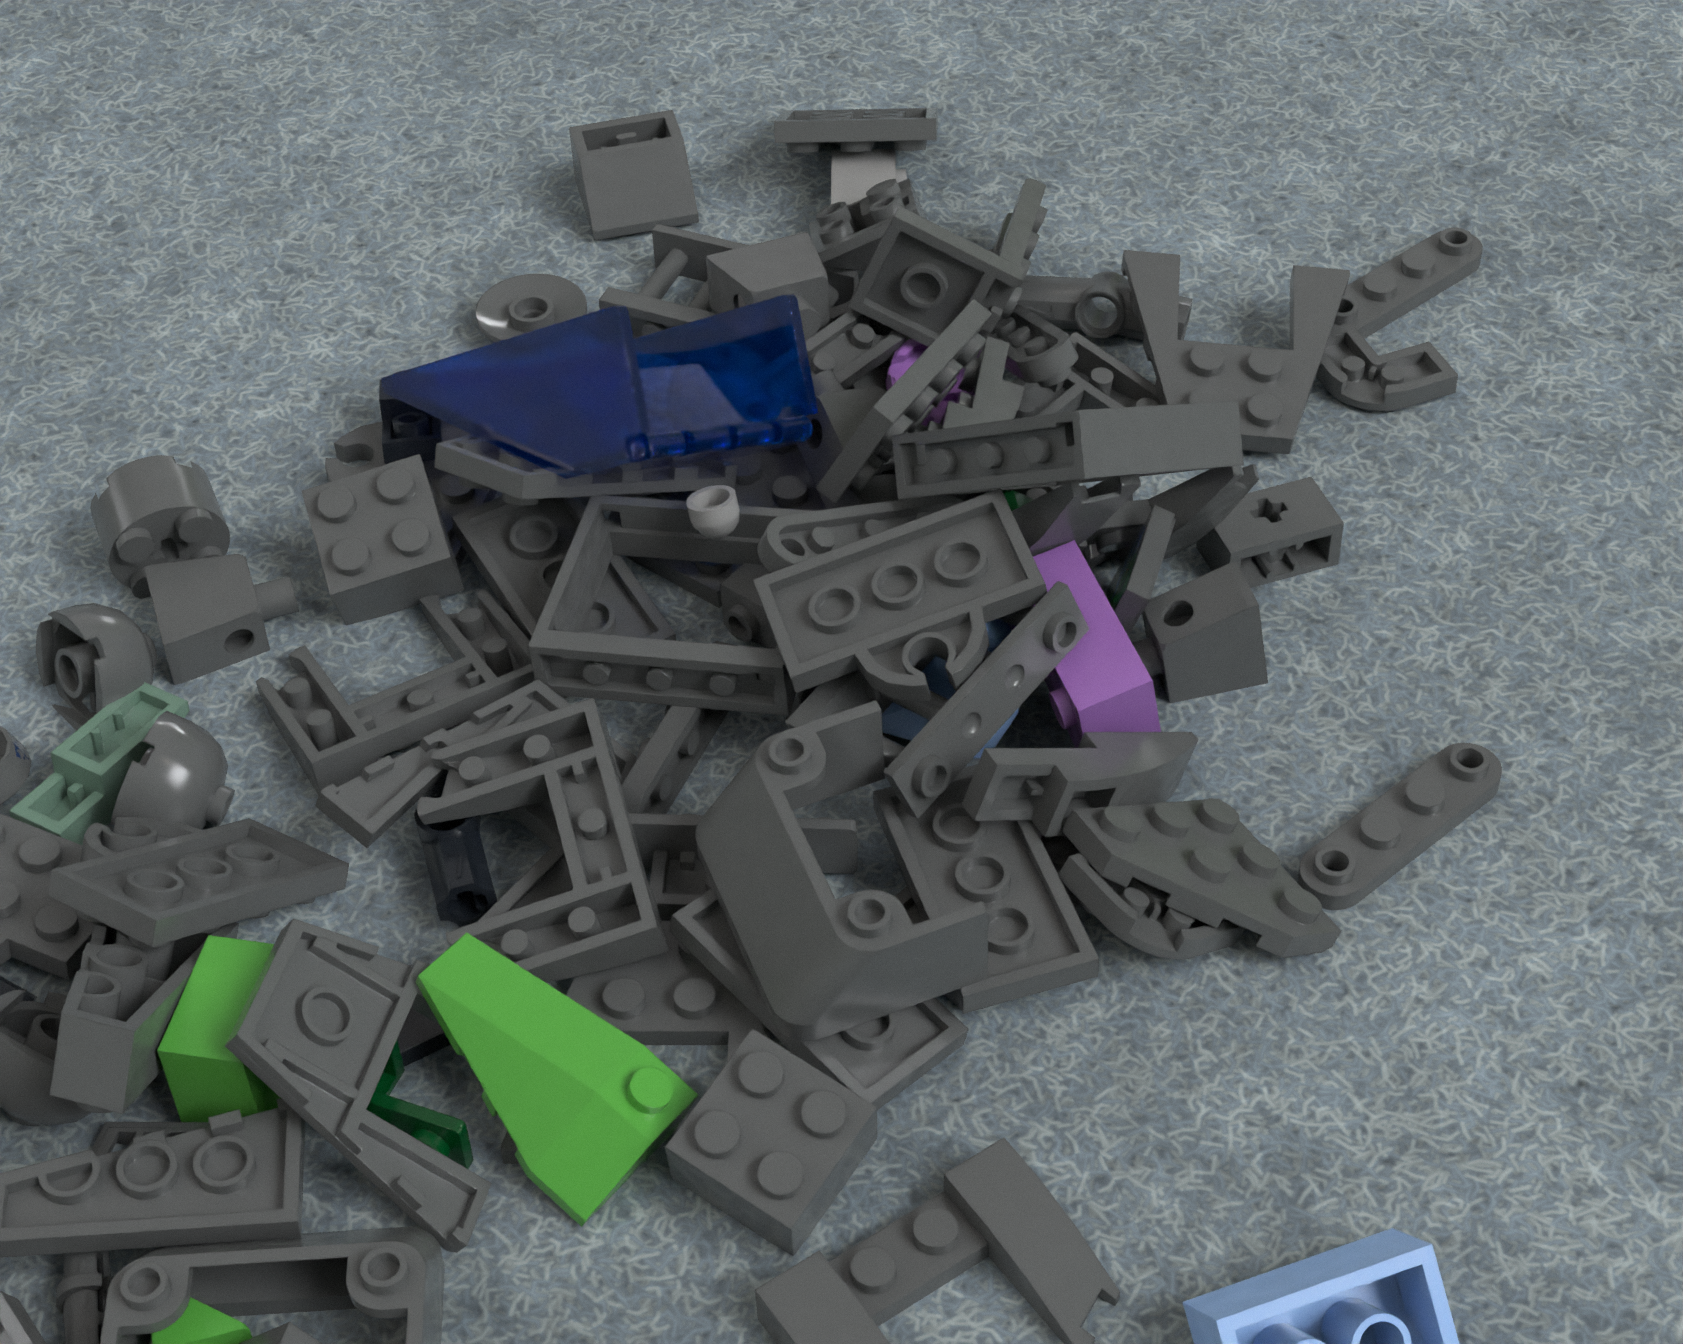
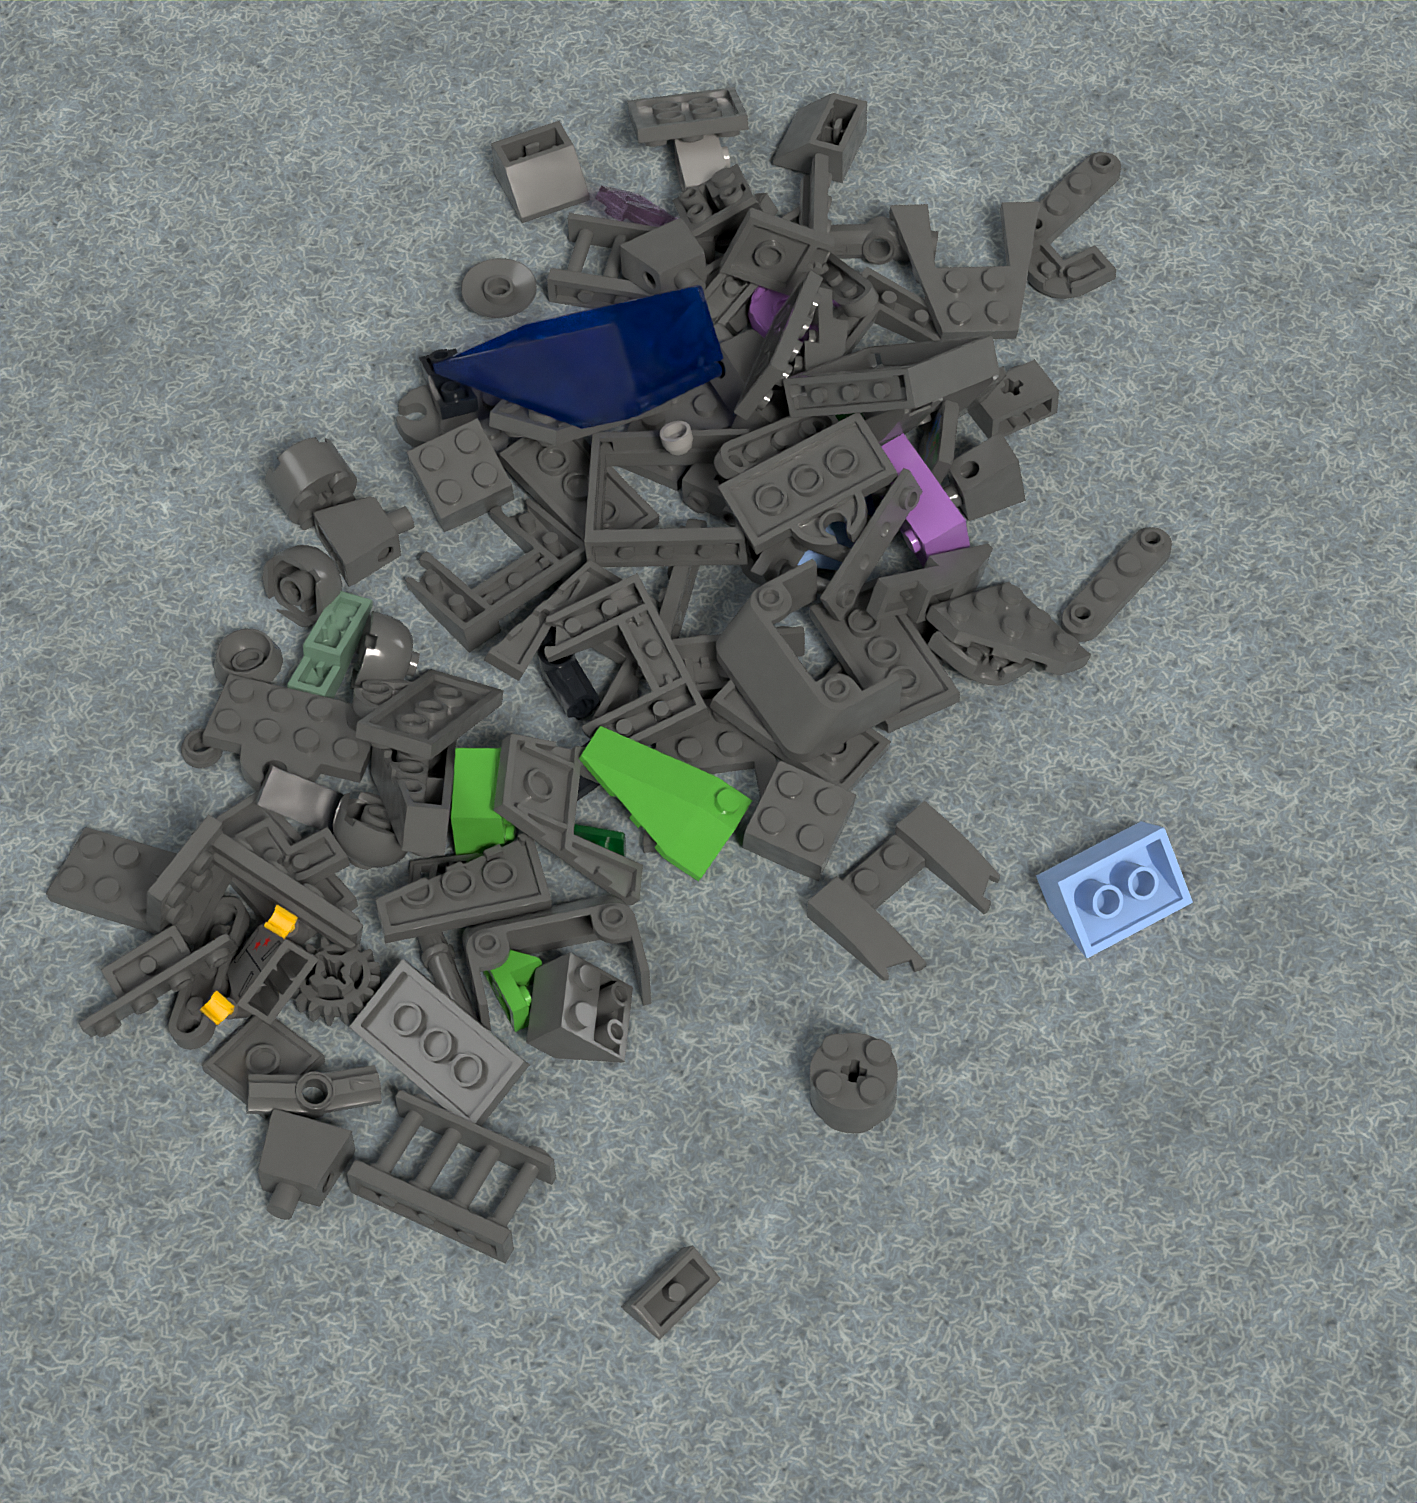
camera: 10 degrees left, 10 degrees up
(734, 220) = (632, 206): none -> clear purple wing
(1069, 157) = (828, 127): none -> dark grey slope

